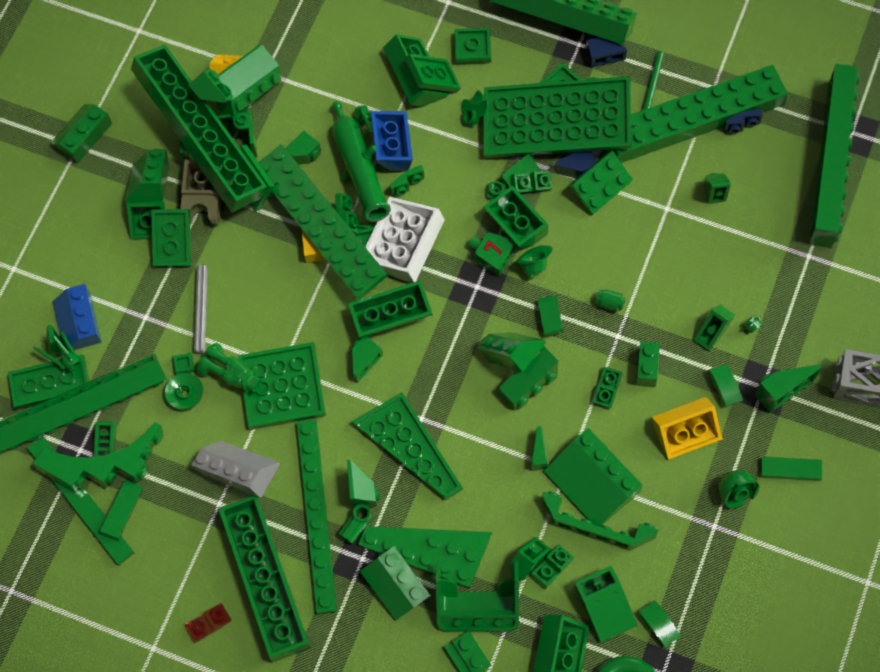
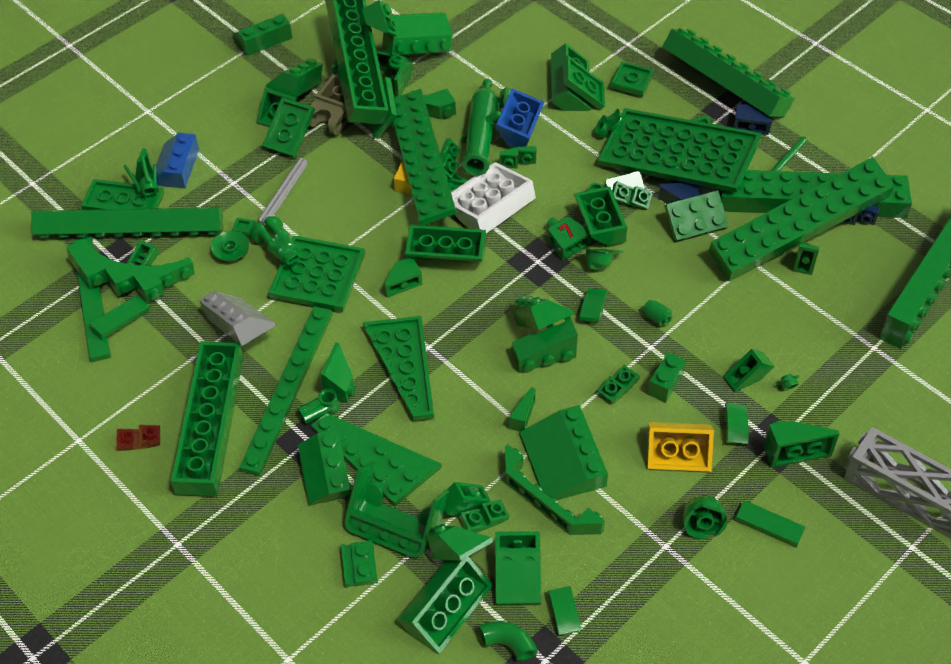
camera: 20 degrees right, 15 degrees down
(547, 607) = (455, 542): none -> green slope
(699, 153) = (800, 218): none -> green brick

